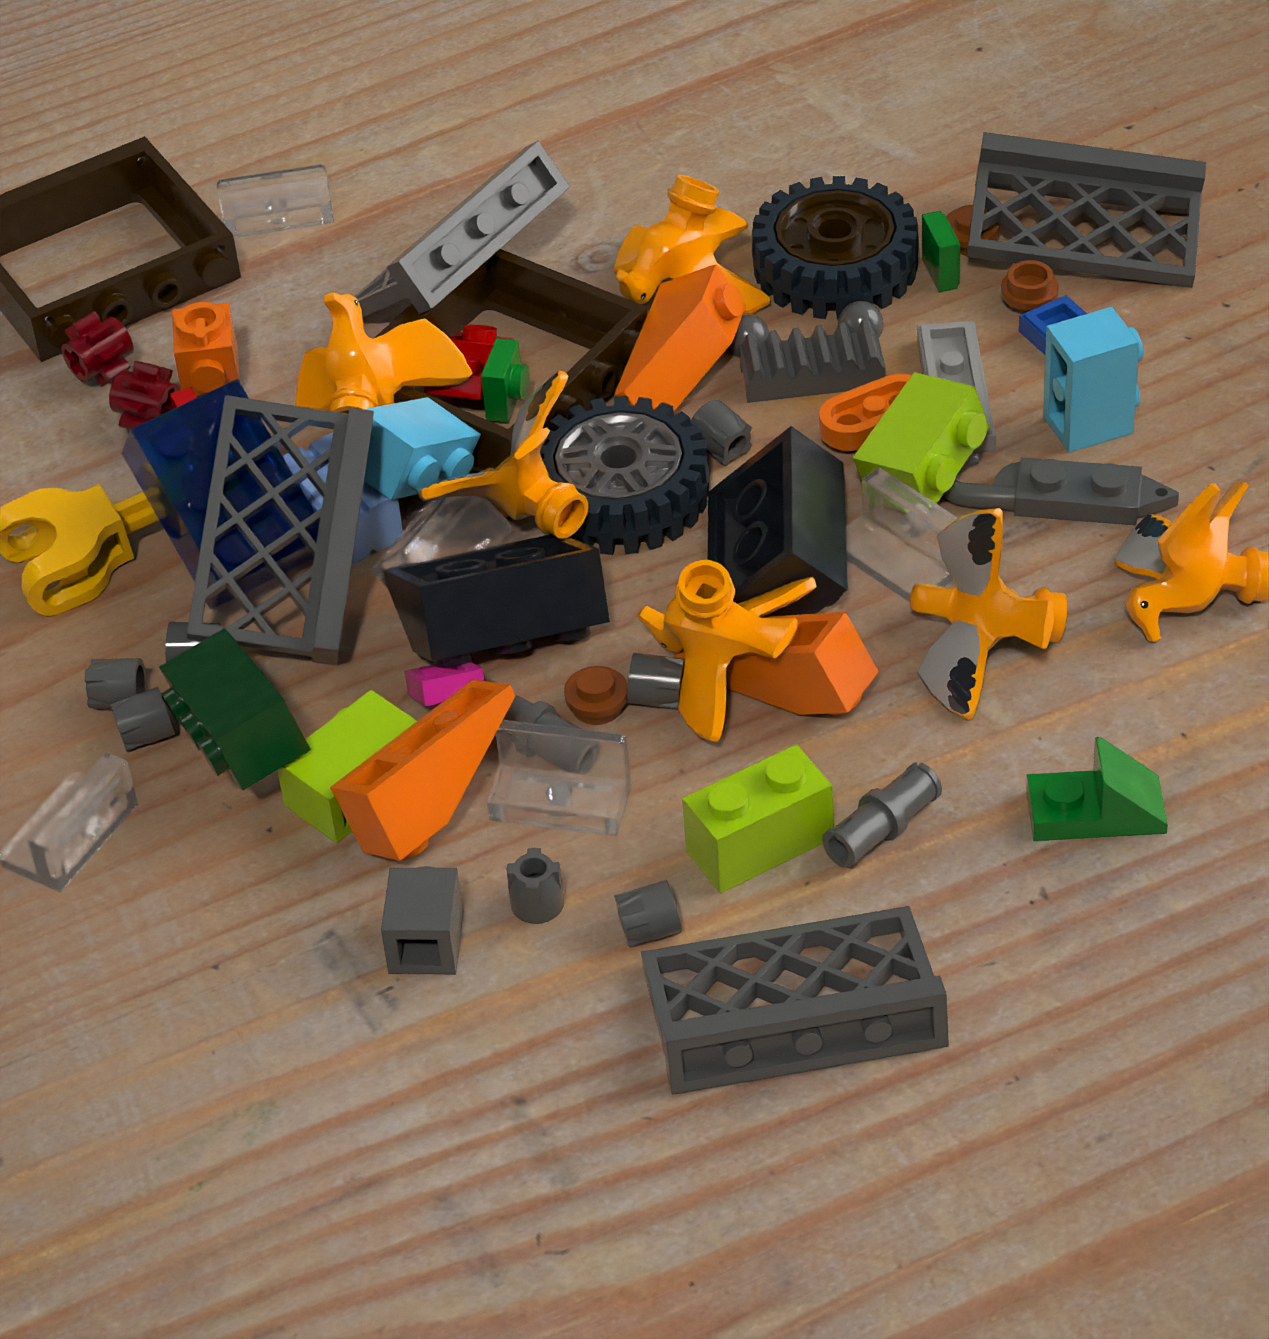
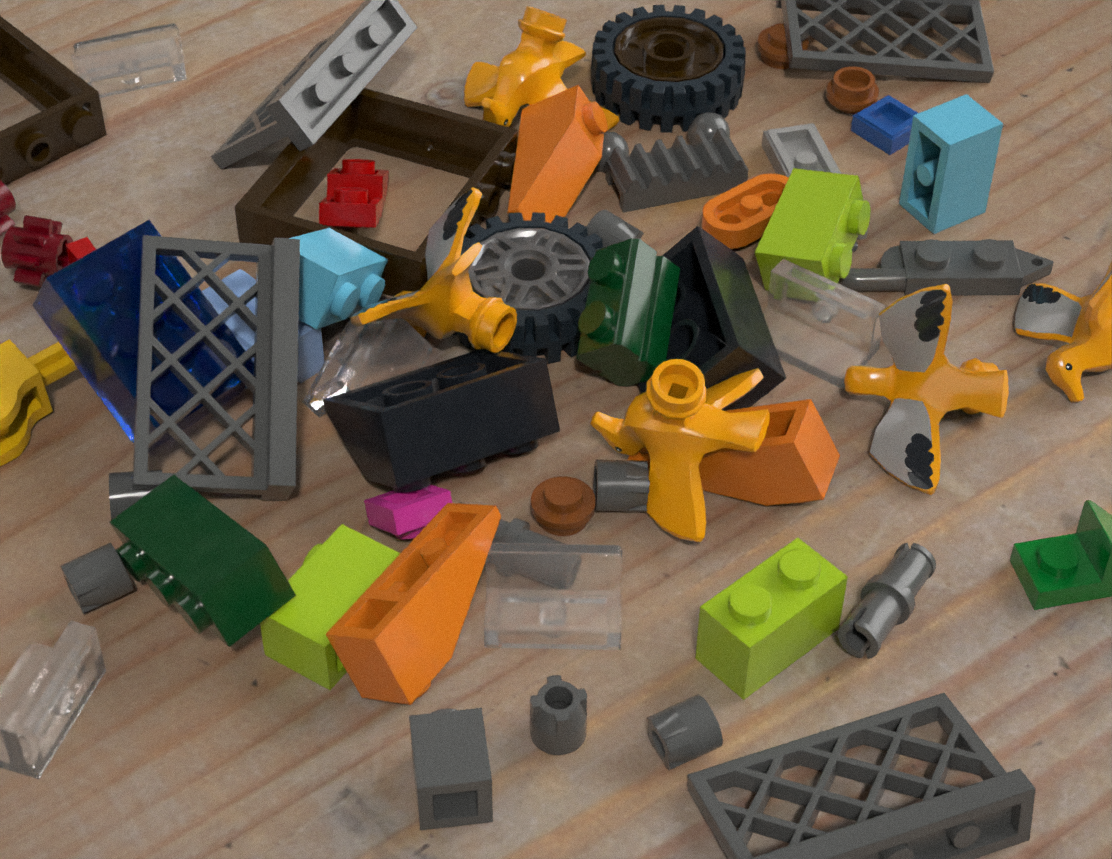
camera: 15 degrees left, 0 degrees up
(113, 680) = (58, 541): dark grey hose -> none
(205, 346) = (91, 198): orange brick -> none
(370, 371) = (268, 206): light orange animal -> none
(504, 380) = (394, 206): green plate -> none
(702, 504) = (627, 312): none -> dark green brick
(940, 251) = (765, 64): green tile -> none

